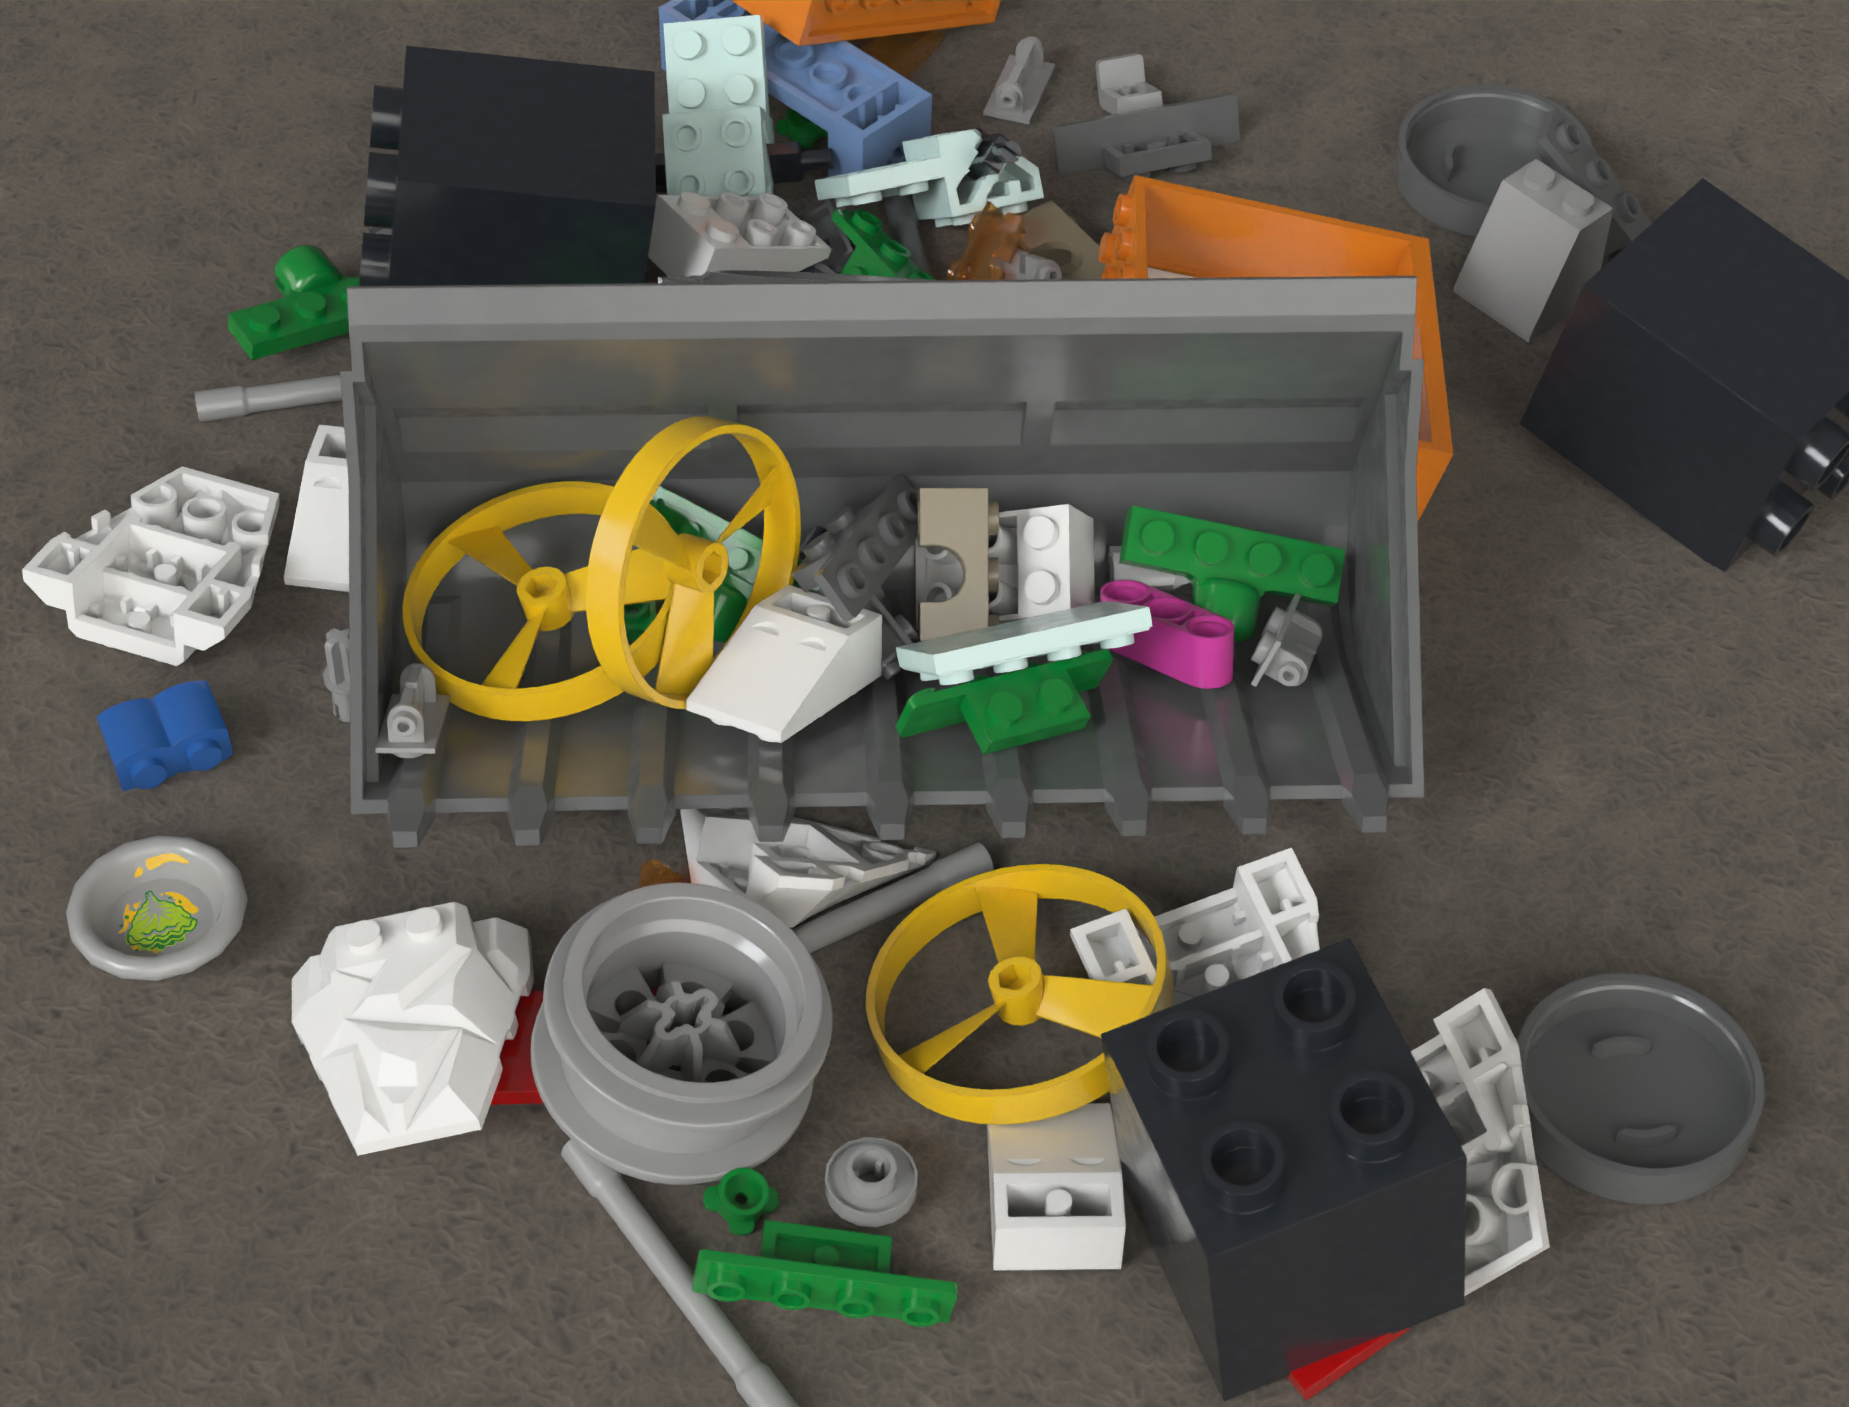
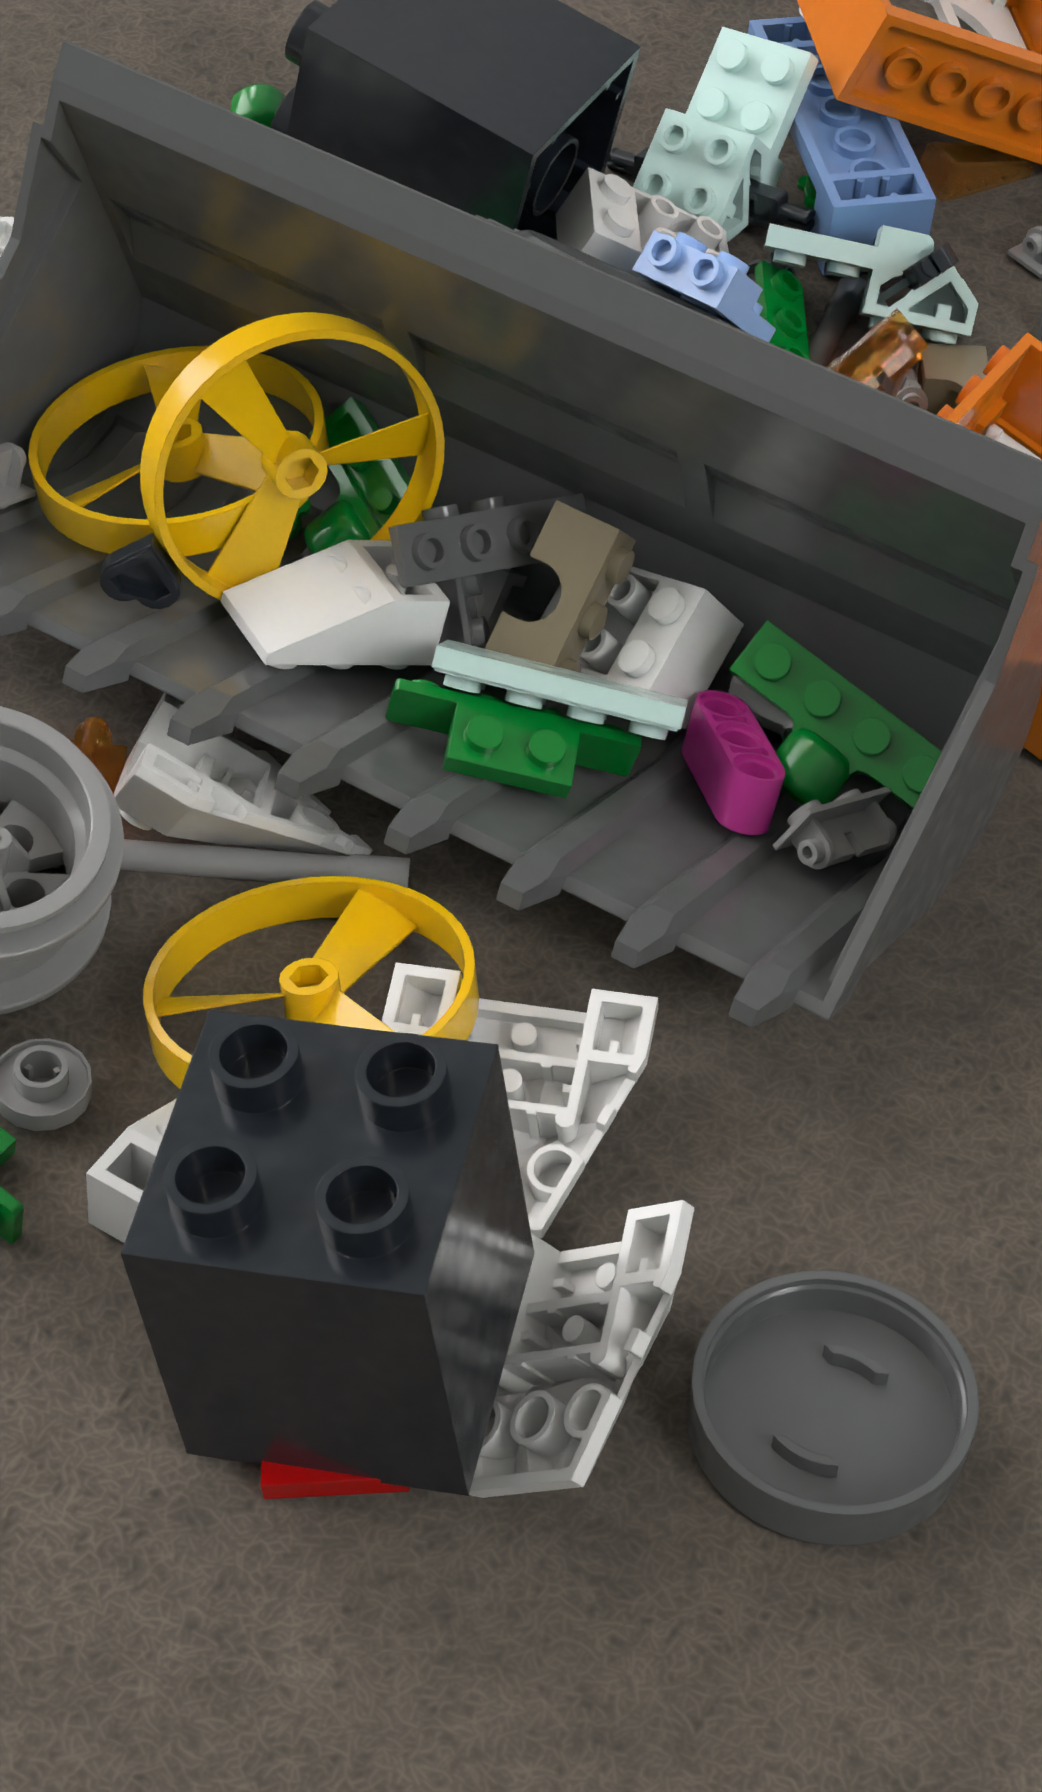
camera: 30 degrees right, 0 degrees up
(619, 719) = (142, 573): none -> black tile
(842, 249) = (704, 281): none -> light blue plate

